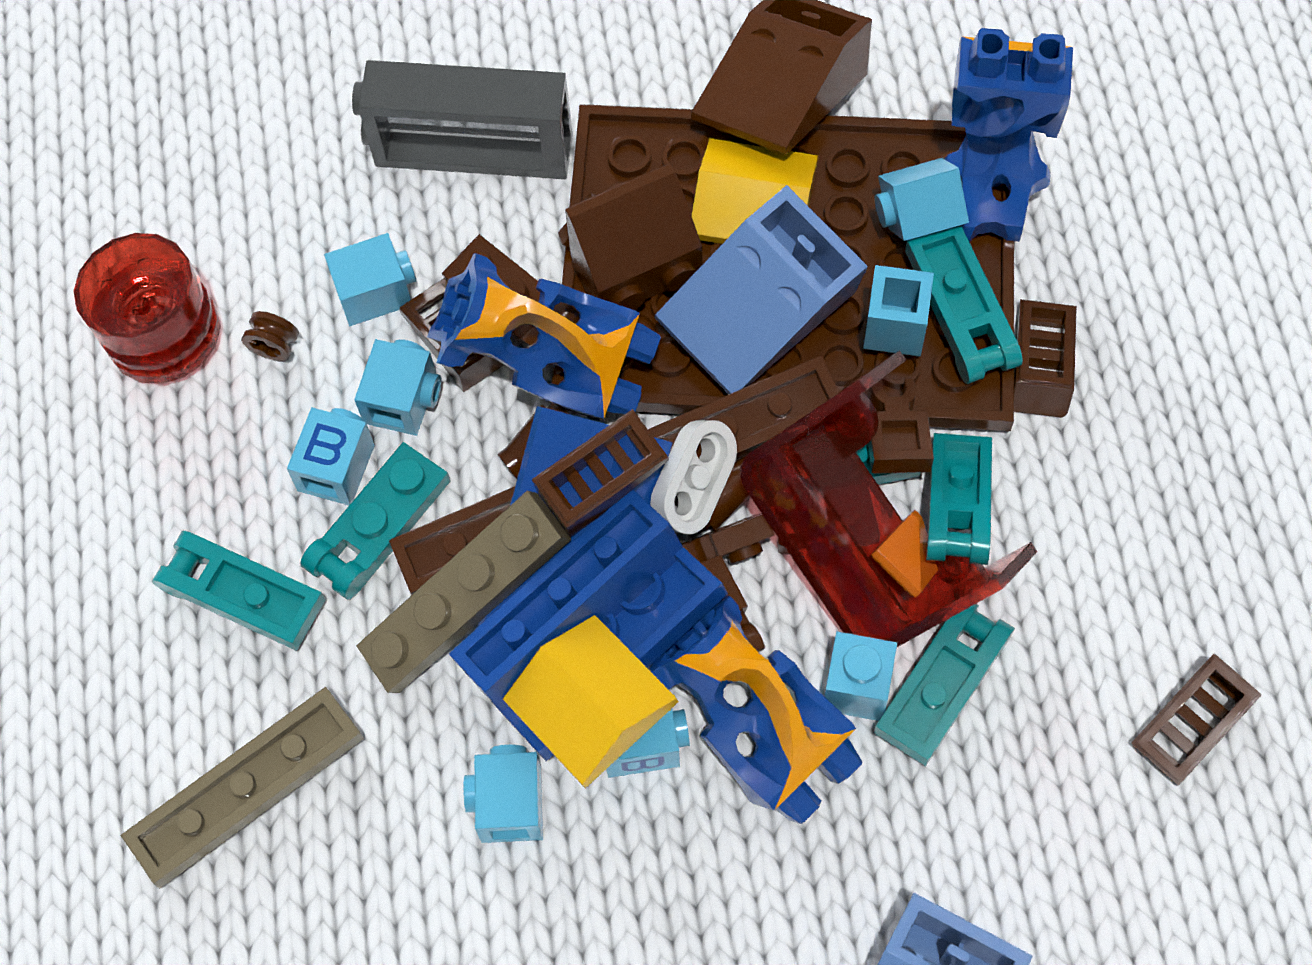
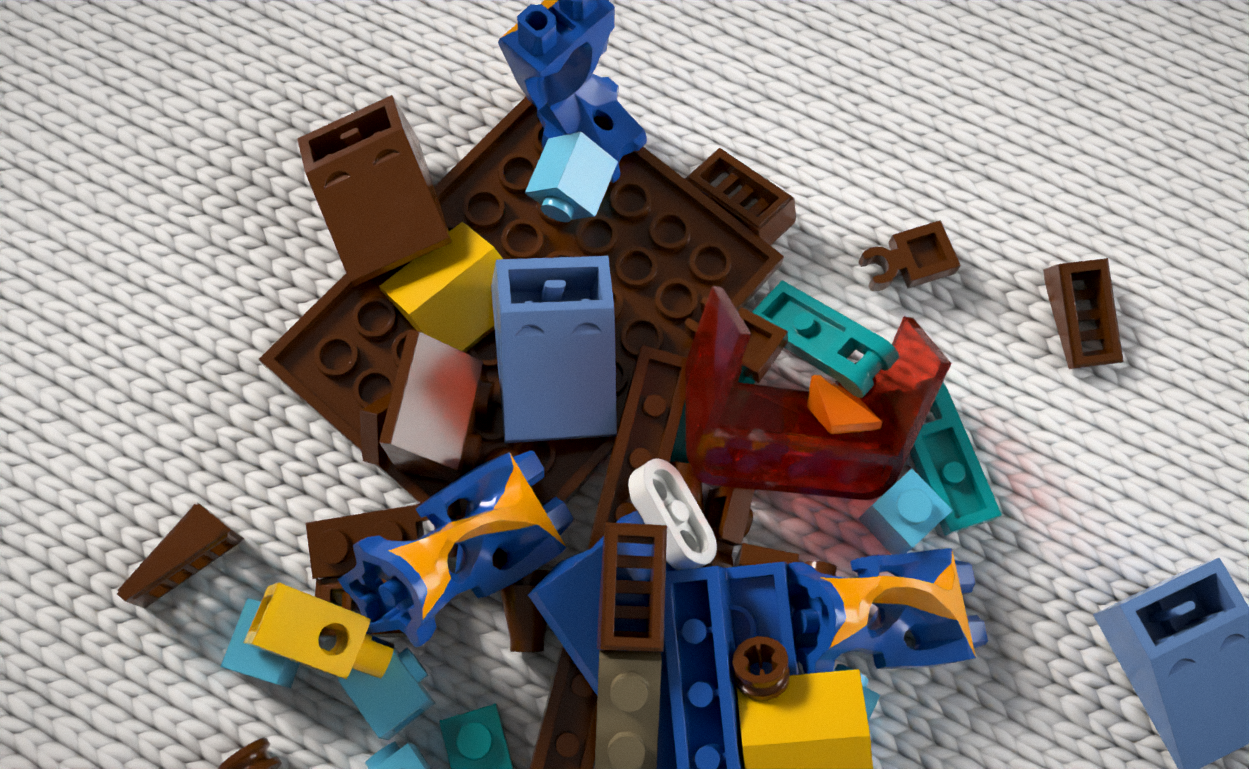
camera: 60 degrees left, 5 degrees up
(387, 267) = (291, 624): none -> yellow torso
(388, 171) = (183, 552): none -> reddish brown slope
(465, 119) = (194, 455): dark grey window -> none
(612, 635) = (761, 686): none -> reddish brown bush
(898, 310) = (650, 263): medium azure brick -> none
(964, 303) = (673, 216): teal plate -> none
(1118, 535) = (915, 254): none -> reddish brown plate

